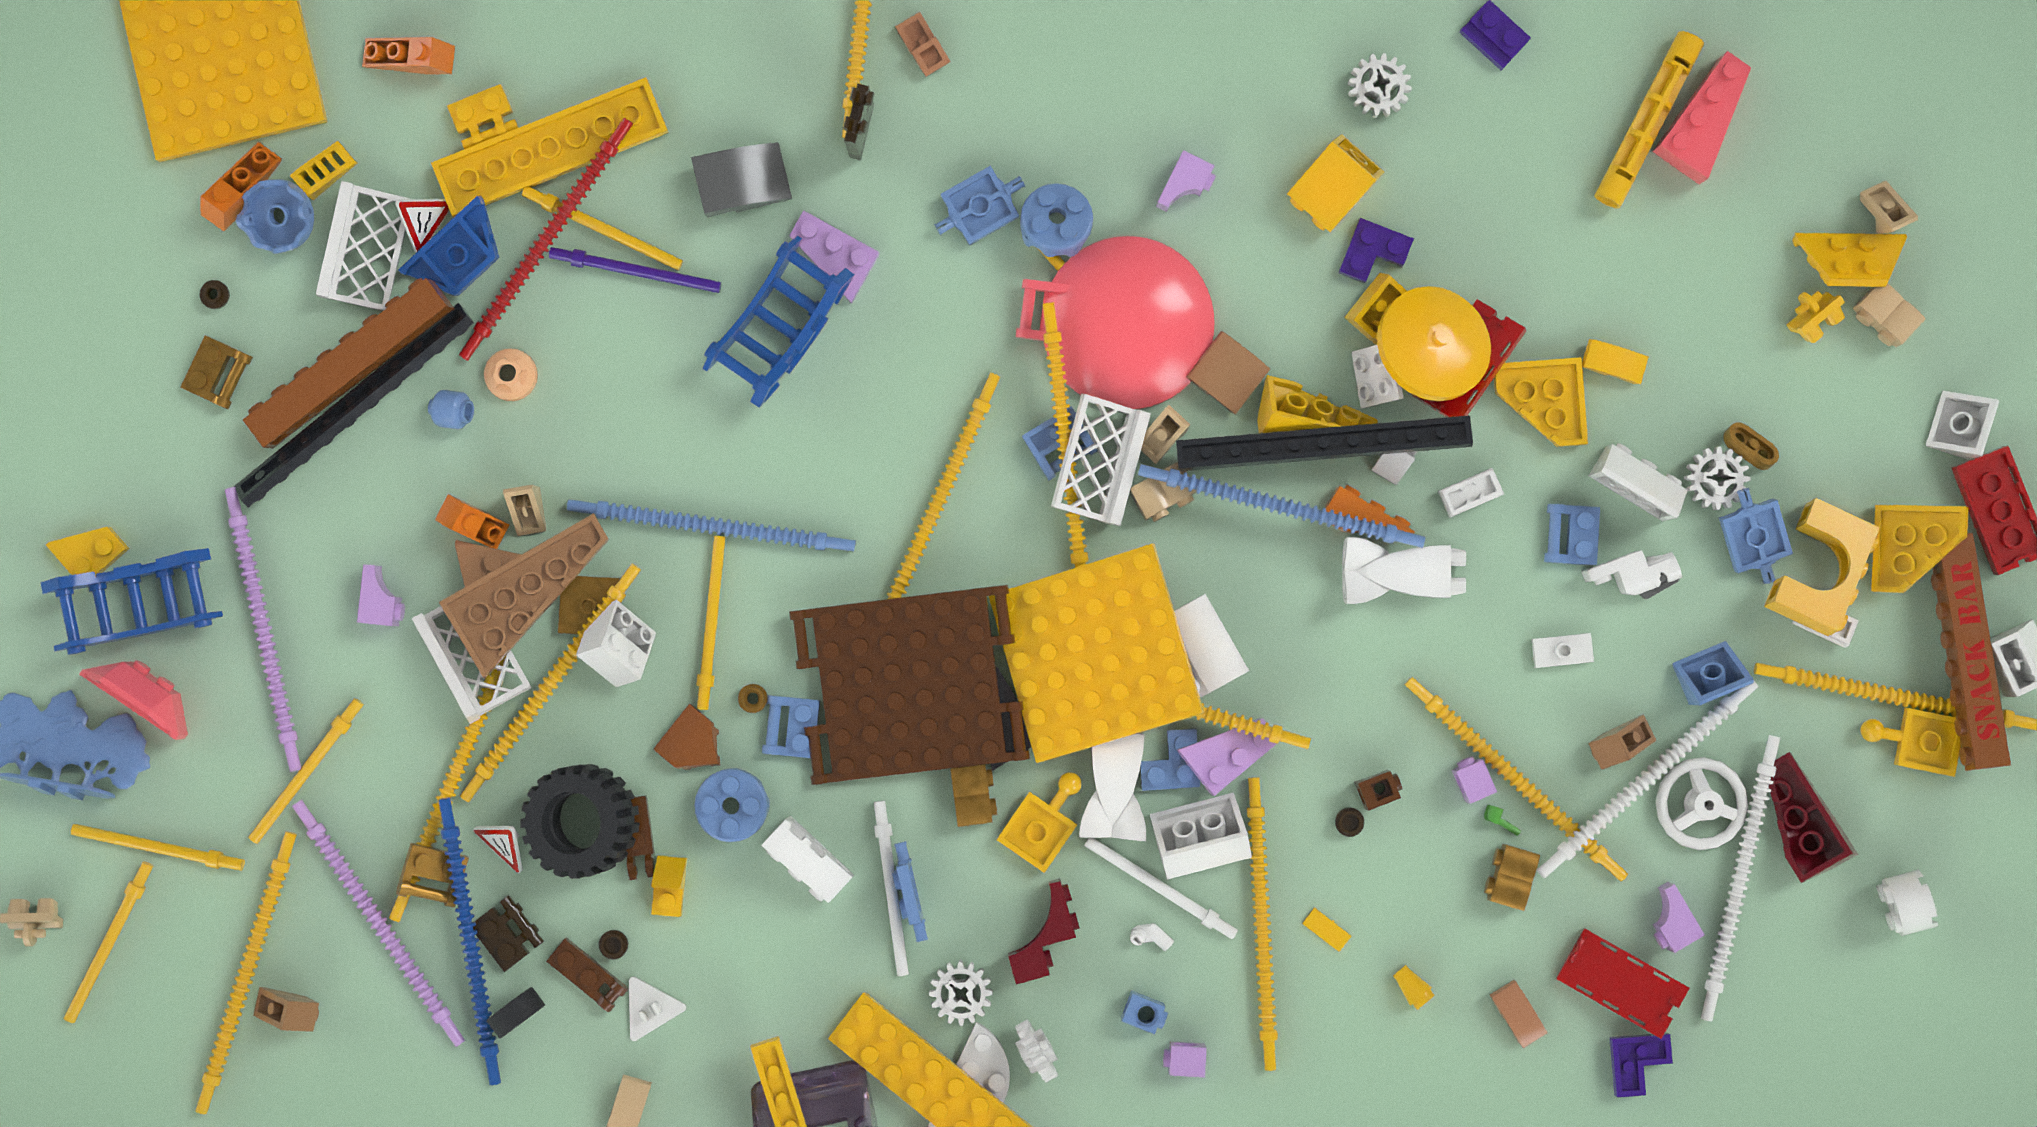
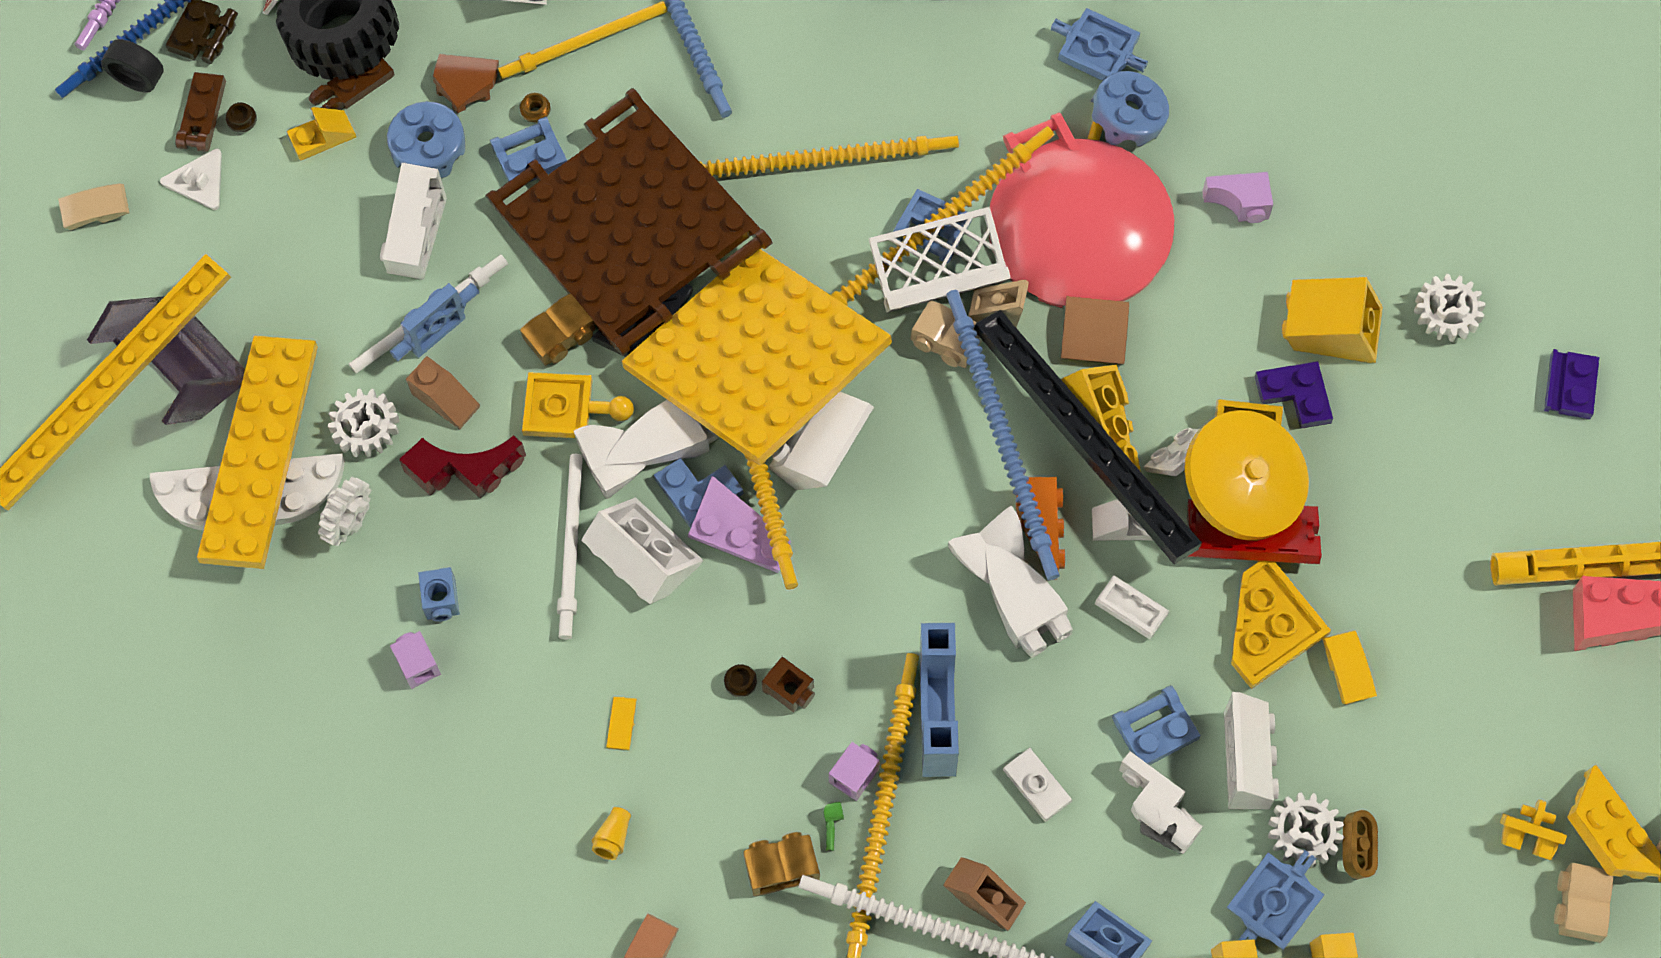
camera: 60 degrees right, 20 degrees down
(972, 916) = (442, 392): none -> medium nougat slope
(1150, 933) = (520, 561): white arm -> none
(1268, 1033) = (485, 723): yellow hose -> none
(1490, 704) = (938, 721): none -> medium blue arch

